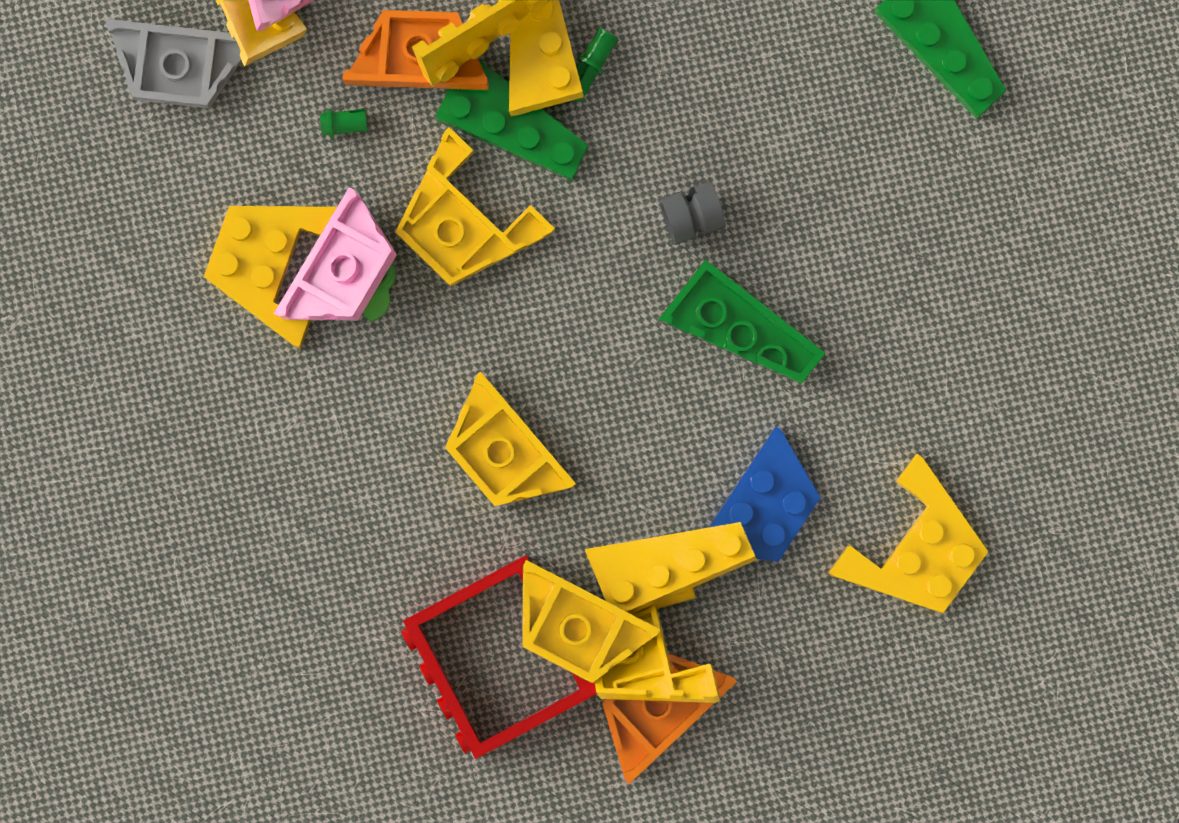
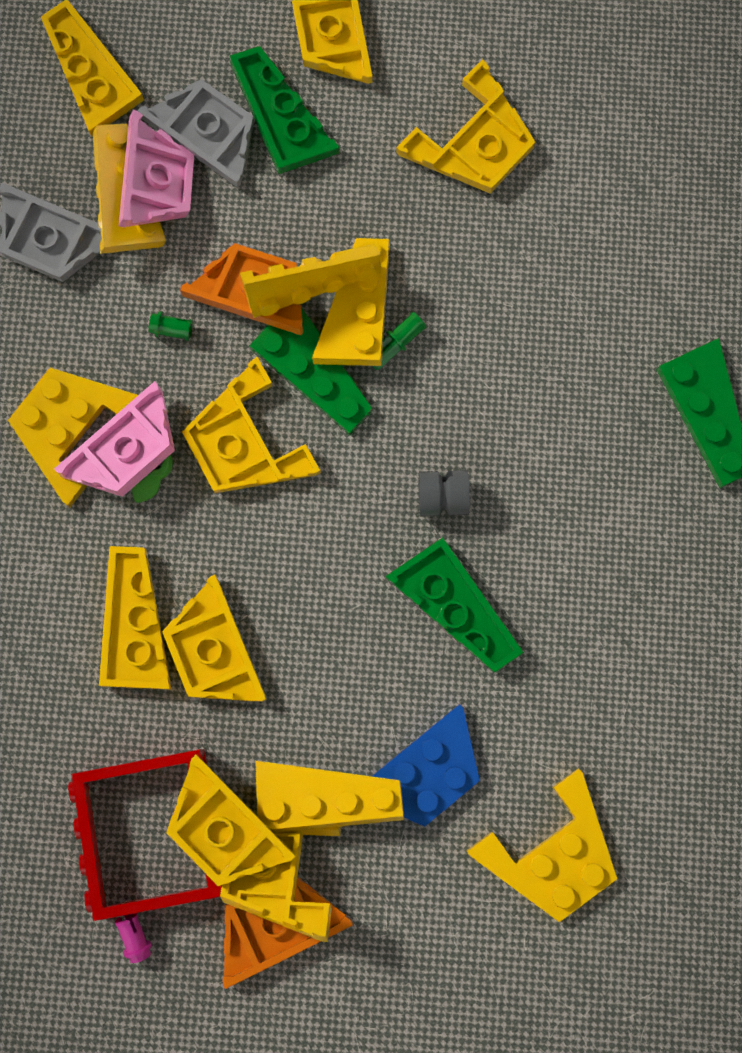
camera: 25 degrees right, 5 degrees down
(412, 457) = (131, 629): none -> yellow wing
(520, 766) = (133, 938): none -> dark pink pin

